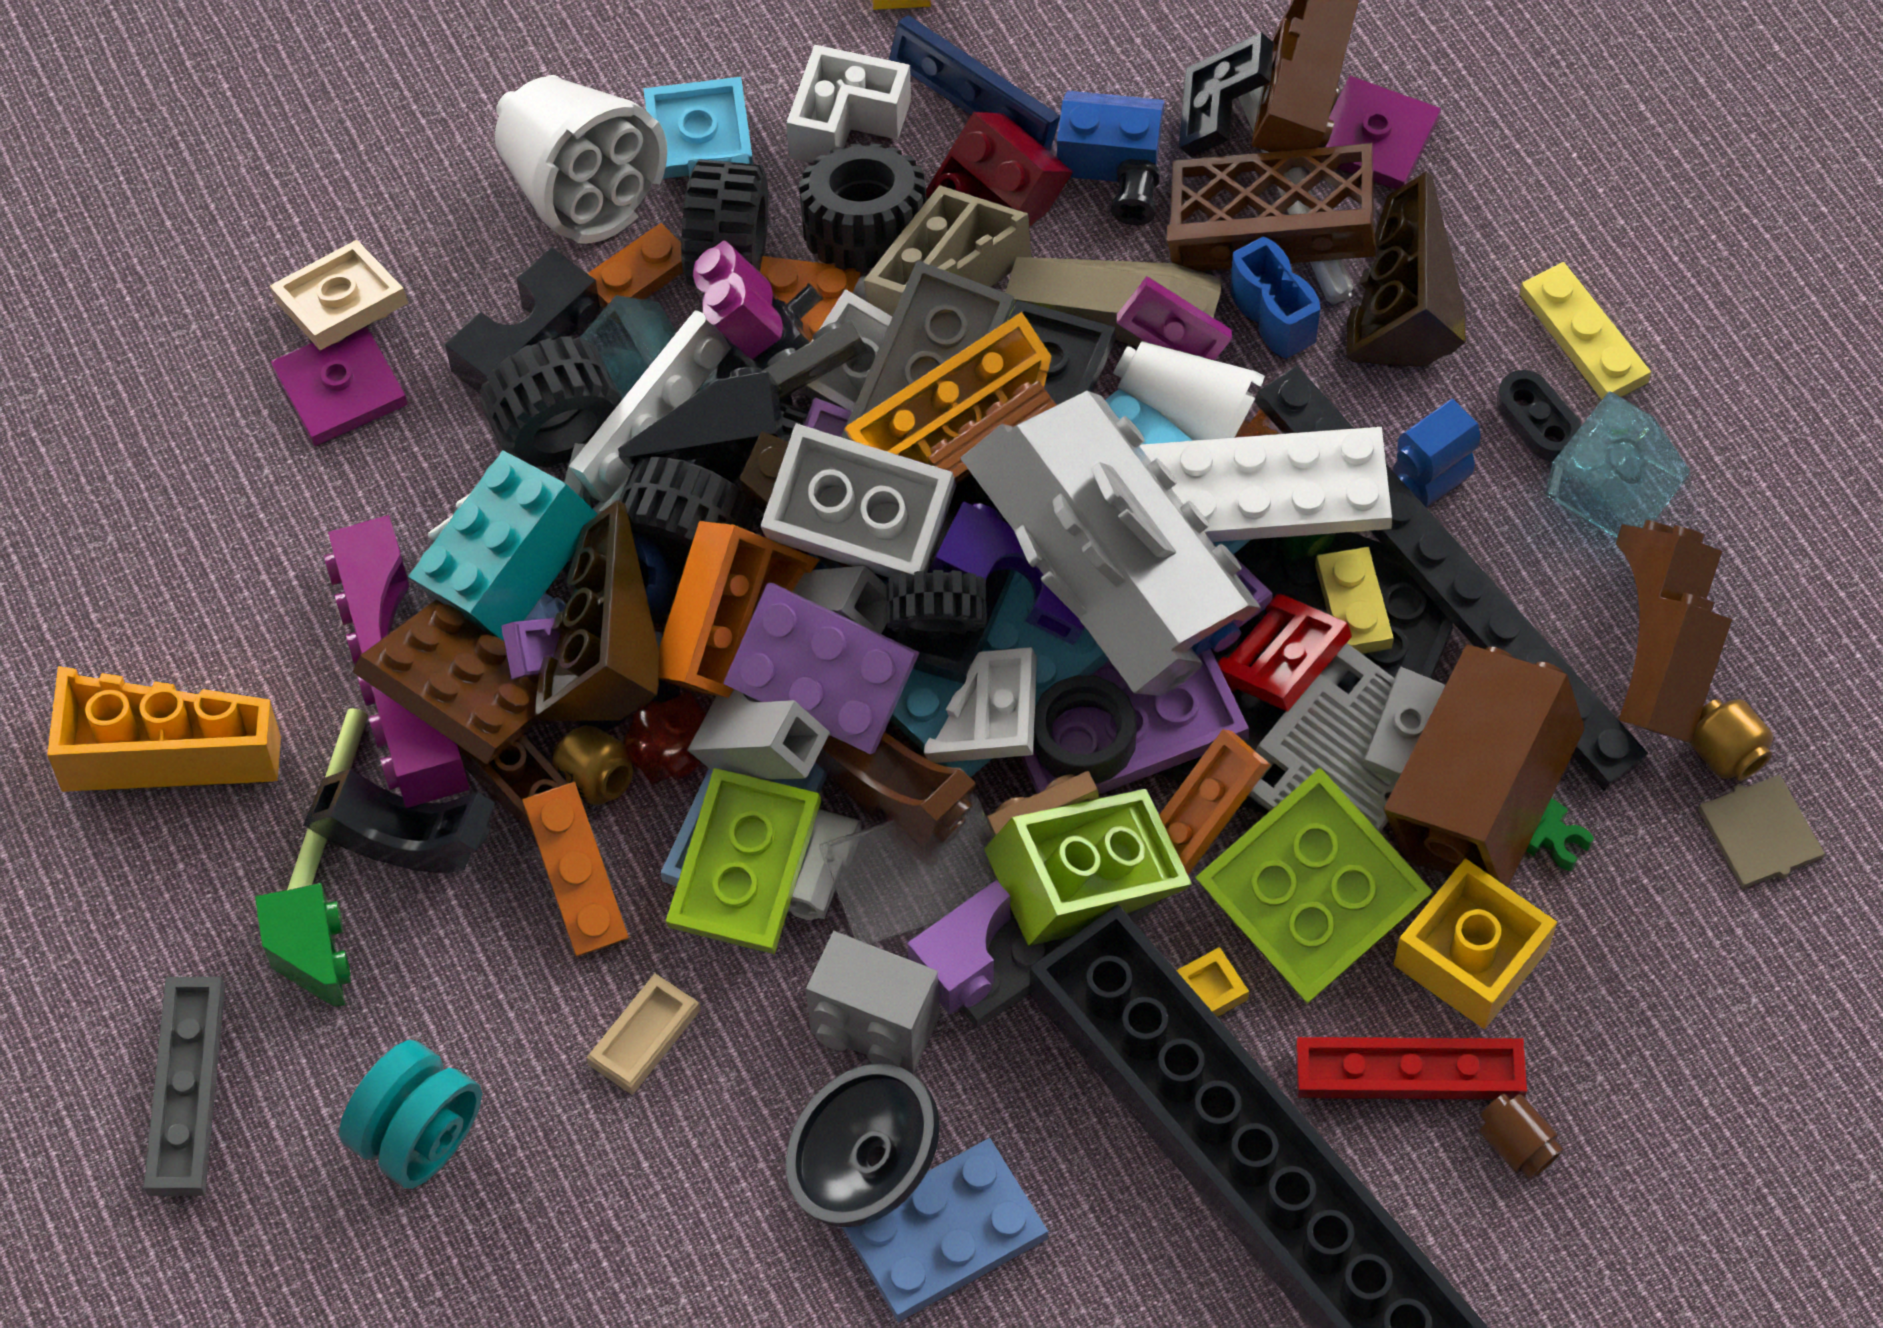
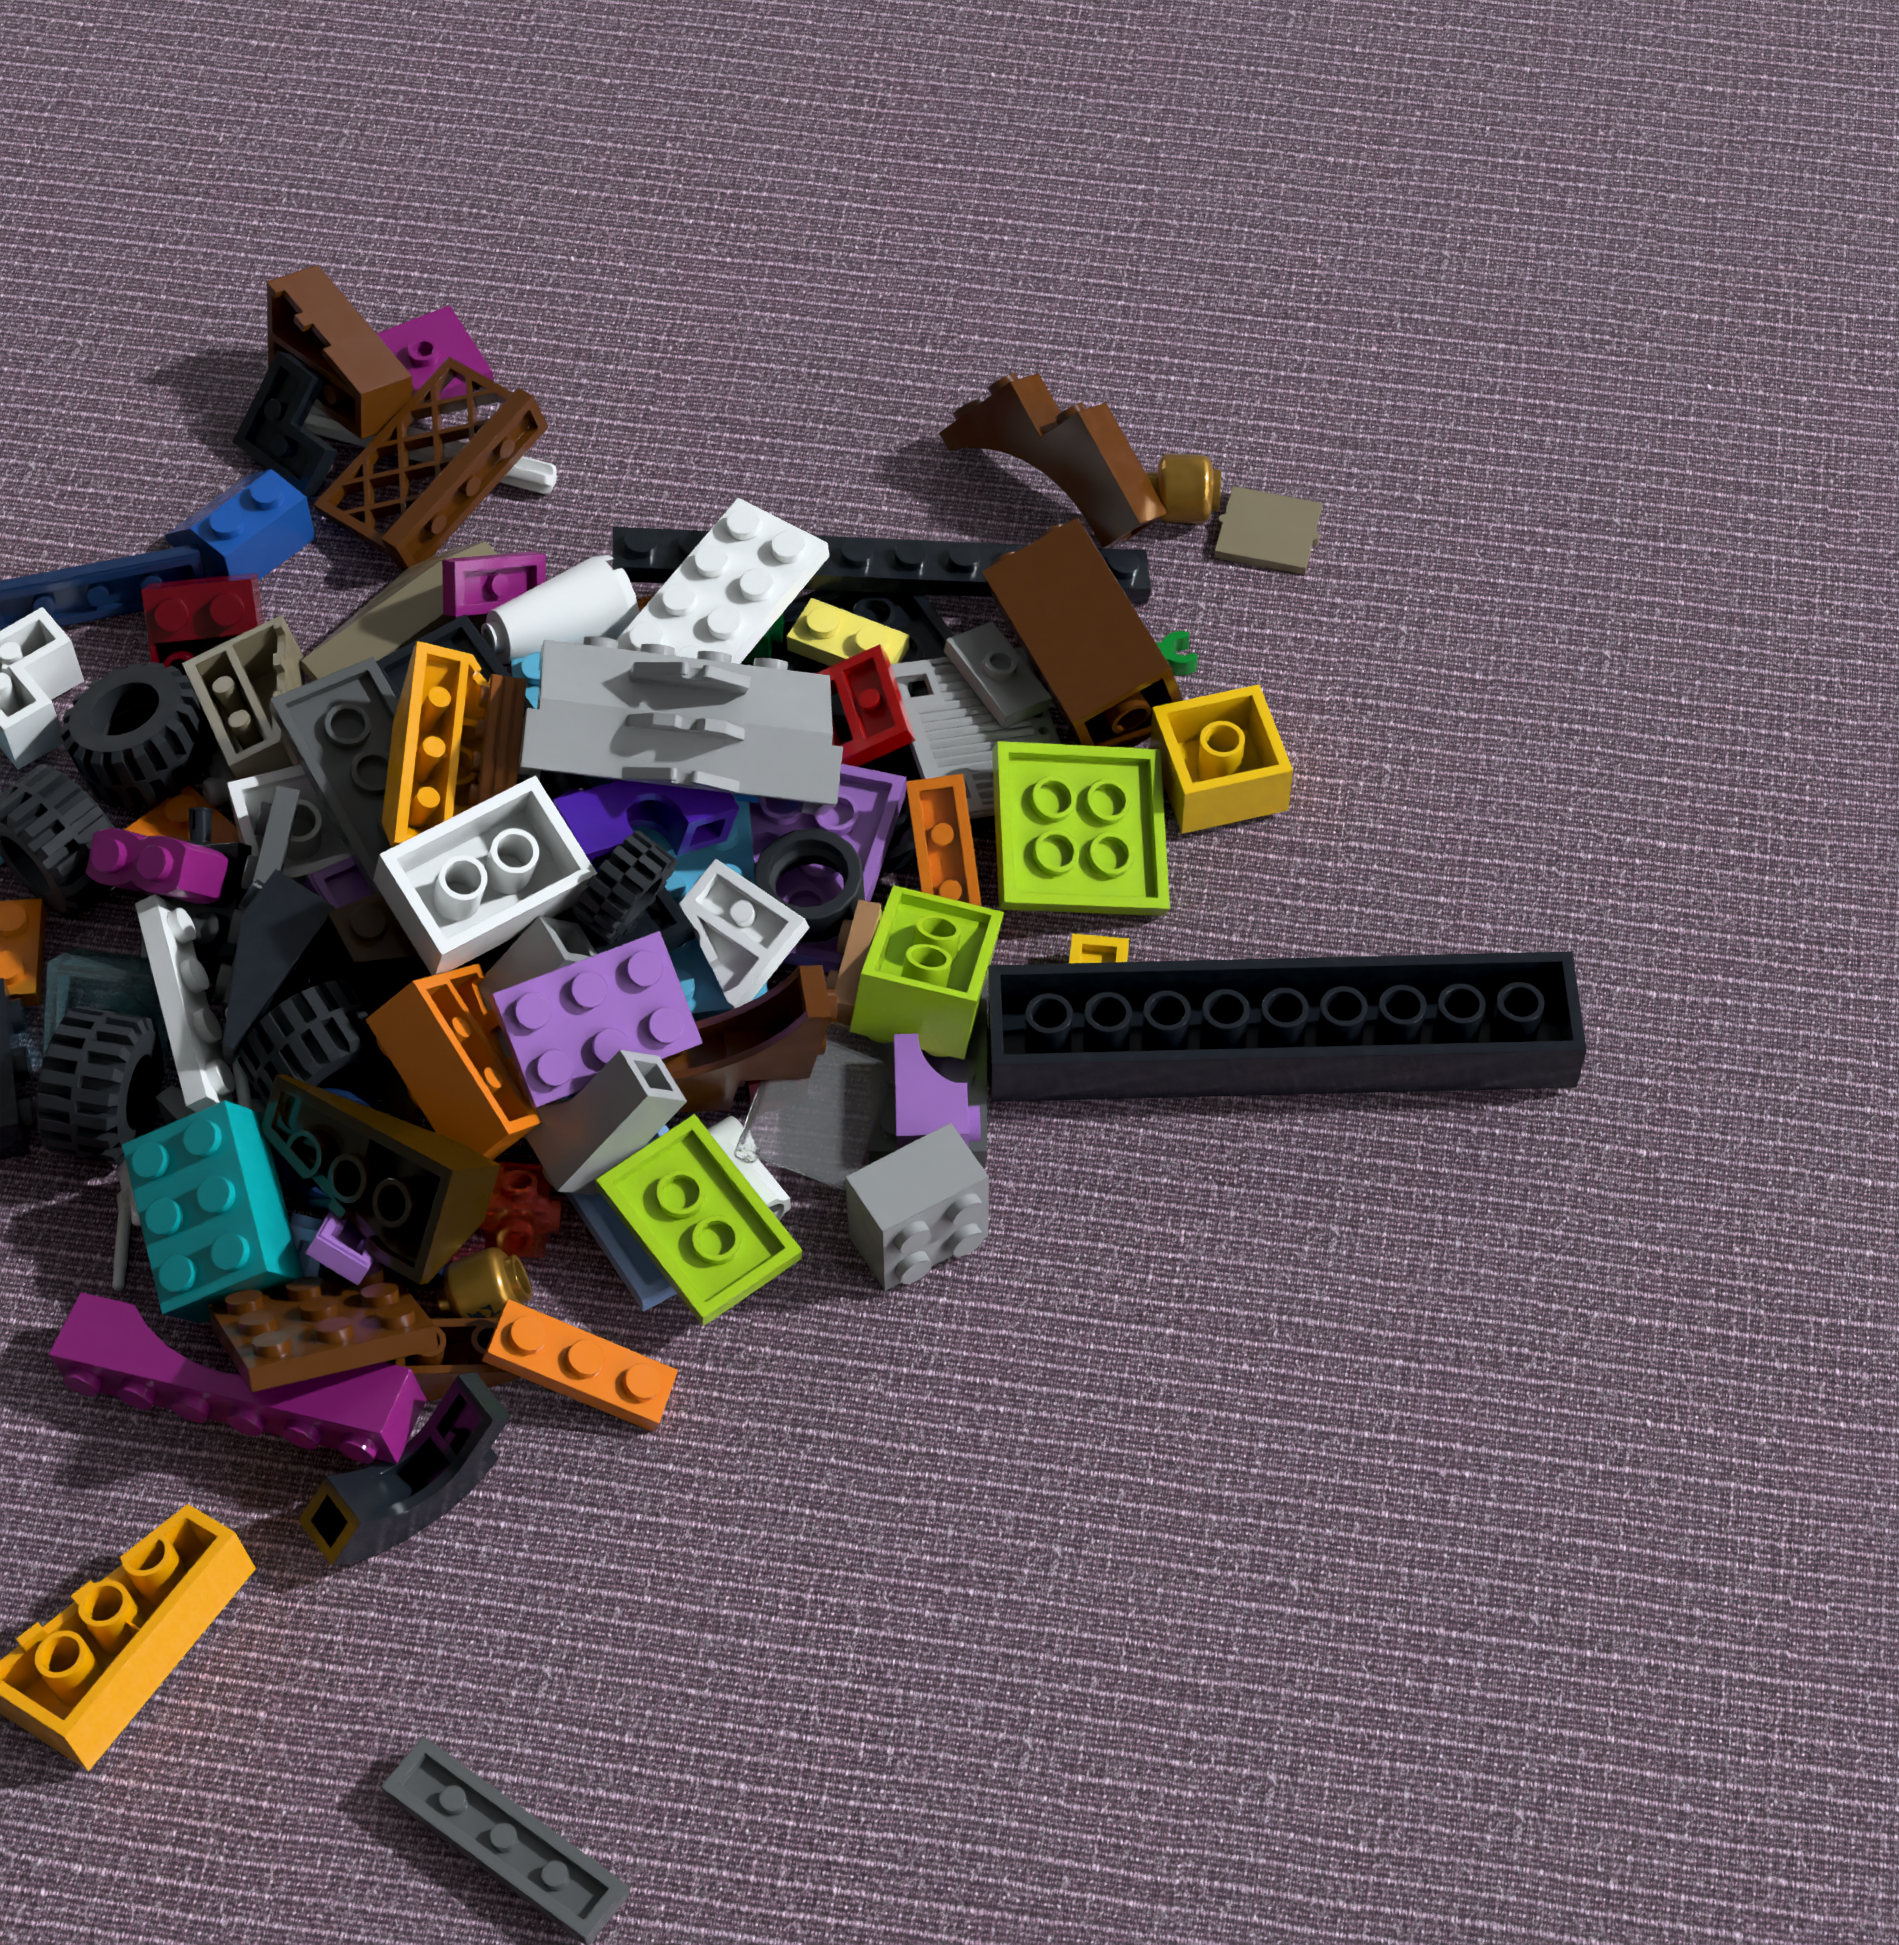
camera: 55 degrees left, 5 degrees down
(300, 940) = (449, 1645): green slope -> none
(341, 760) = (345, 1576): yellowish green bar -> none
(410, 1113) = (726, 1641): teal wheel -> none
(643, 1033) = (778, 1420): tan tile -> none
(862, 1145) = (1008, 1294): black dish -> none
(949, 1231) = (1155, 1301): medium blue plate -> none
(1135, 193) = (316, 547): black bush -> none
(1274, 297) = (520, 513): blue brick -> none
(1410, 1068) = (1284, 876): red plate -> none
(1412, 291) = (595, 433): dark brown wedge -> none
(1437, 452) = (772, 479): blue brick -> none
(1520, 1135) = (1402, 841): reddish brown brick -> none
(1542, 418) = (789, 425): black plate -> none
(1584, 332) = (740, 352): light yellow plate -> none
(1617, 468) = (883, 408): clear light blue slope -> none

